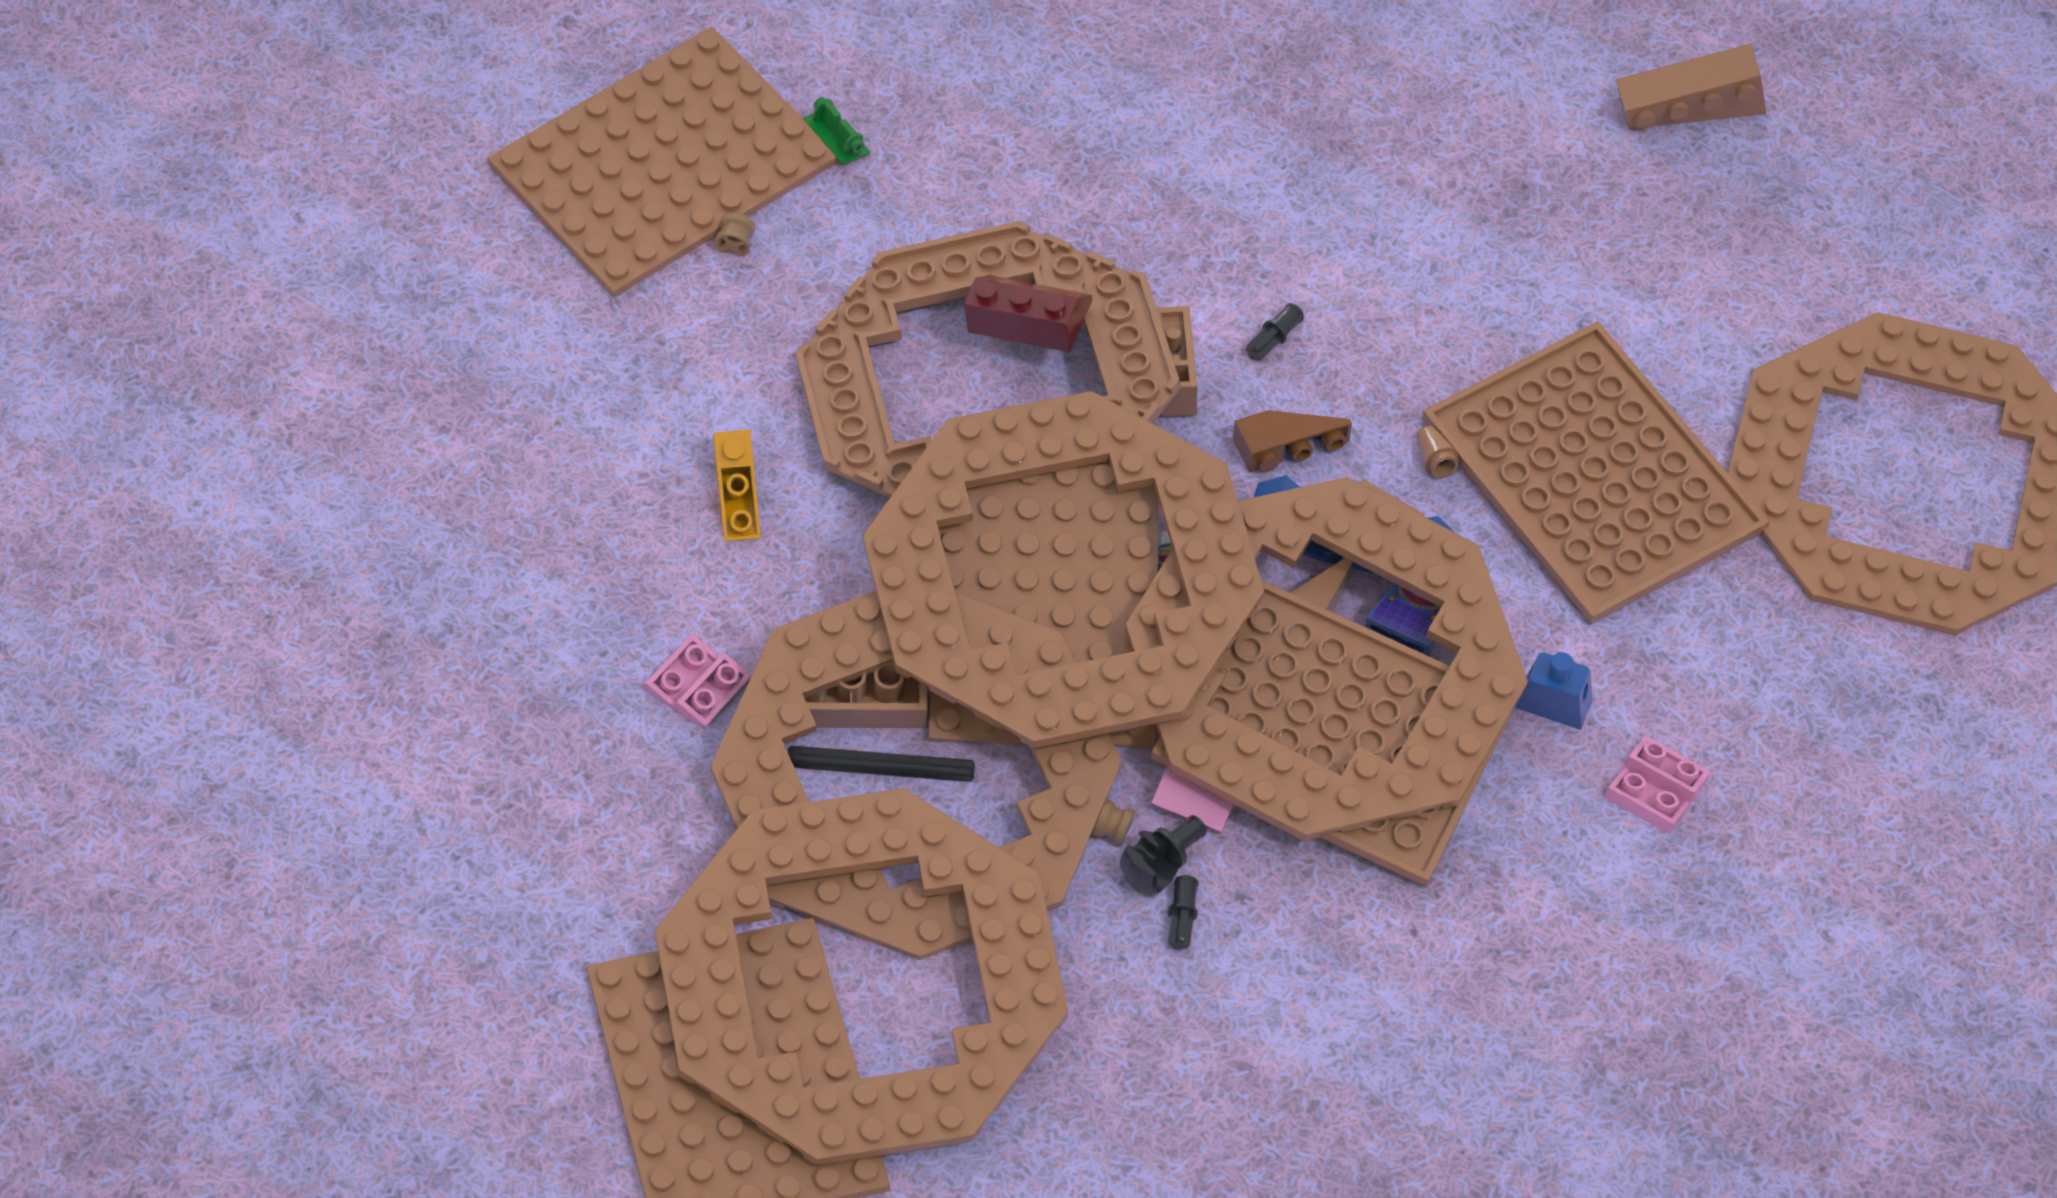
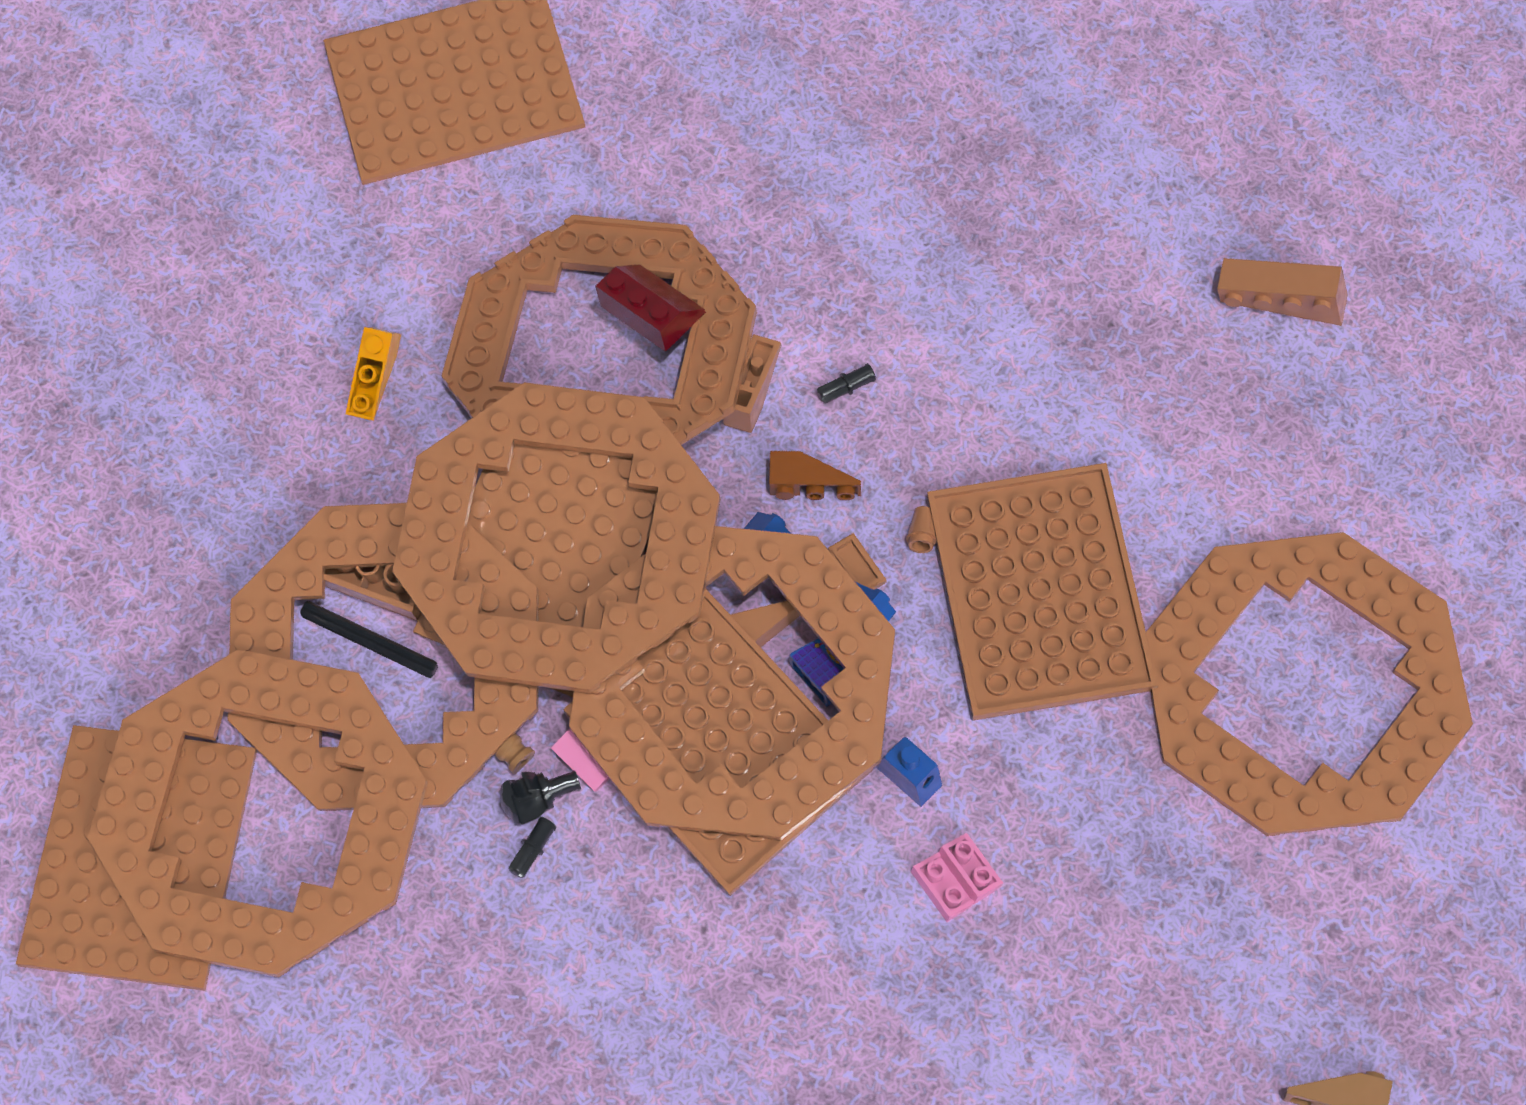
camera: 30 degrees right, 10 degrees up
(697, 681) = (266, 522): bright pink slope -> none
(734, 234) = (473, 163): medium nougat wheel -> none
(835, 132) = (591, 103): green hinge -> none

